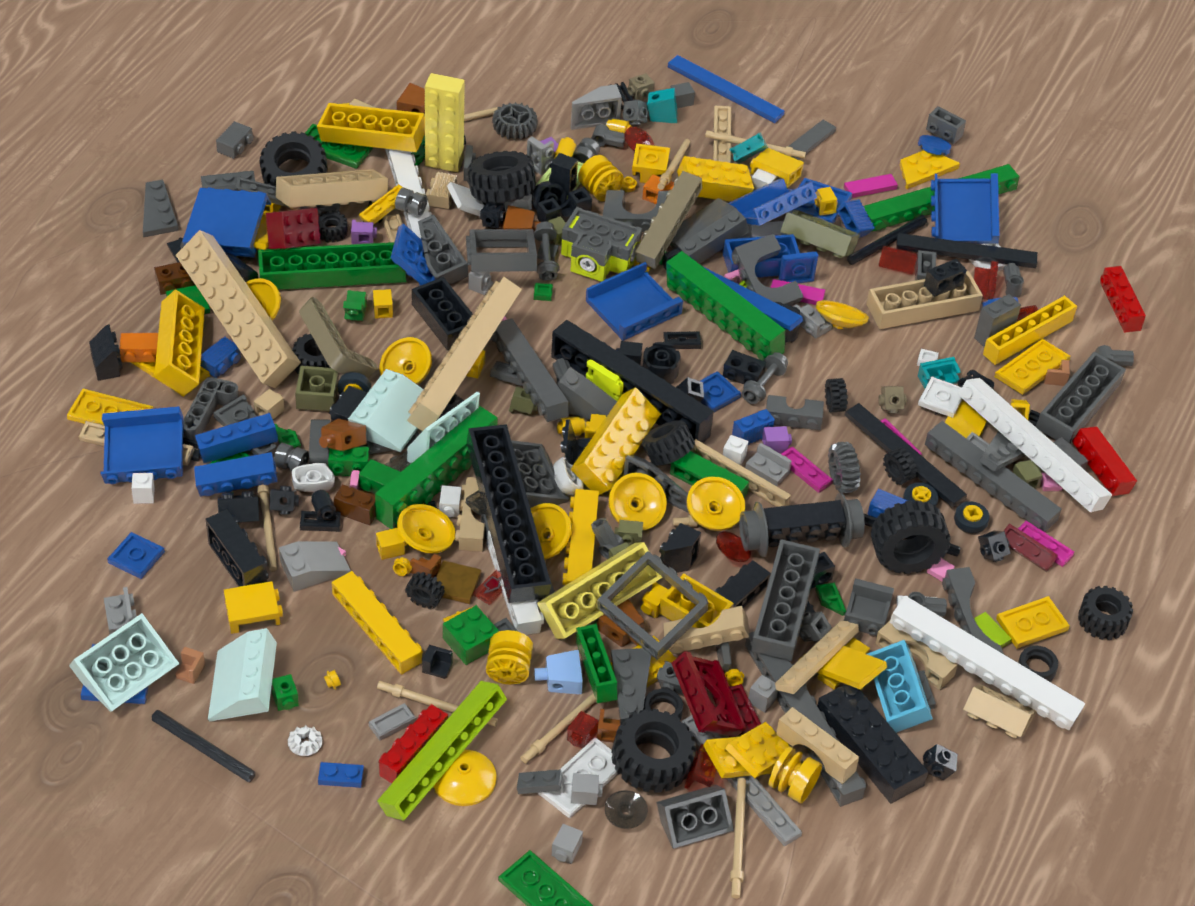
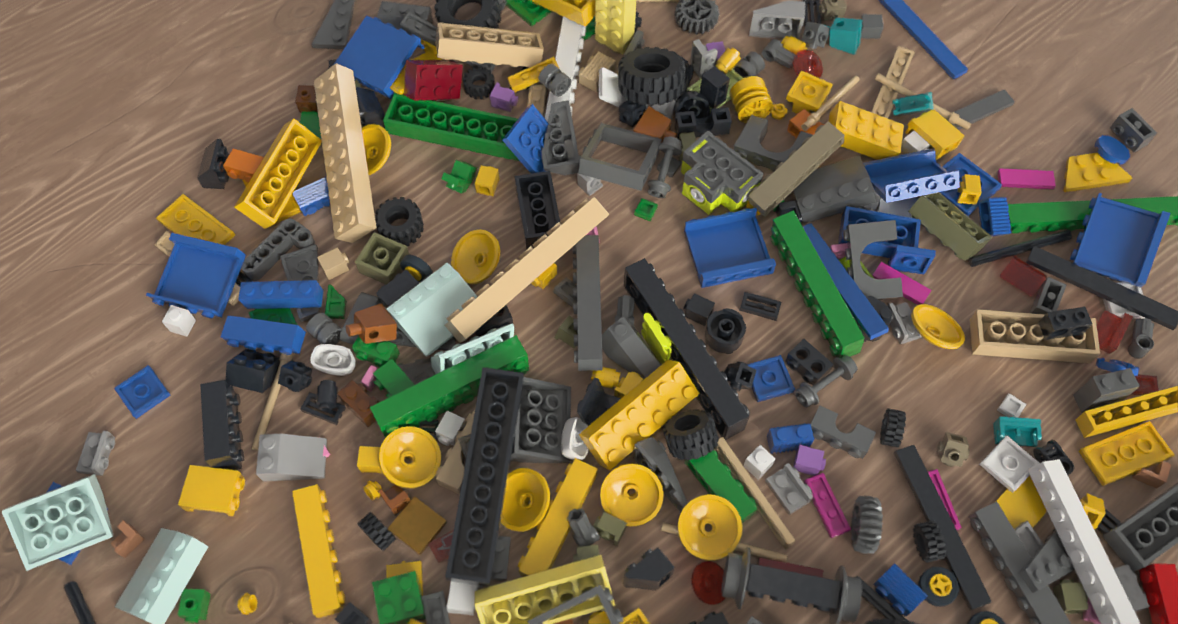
camera: 25 degrees right, 15 degrees up
(331, 343) = (406, 219): dark tan beam -> none

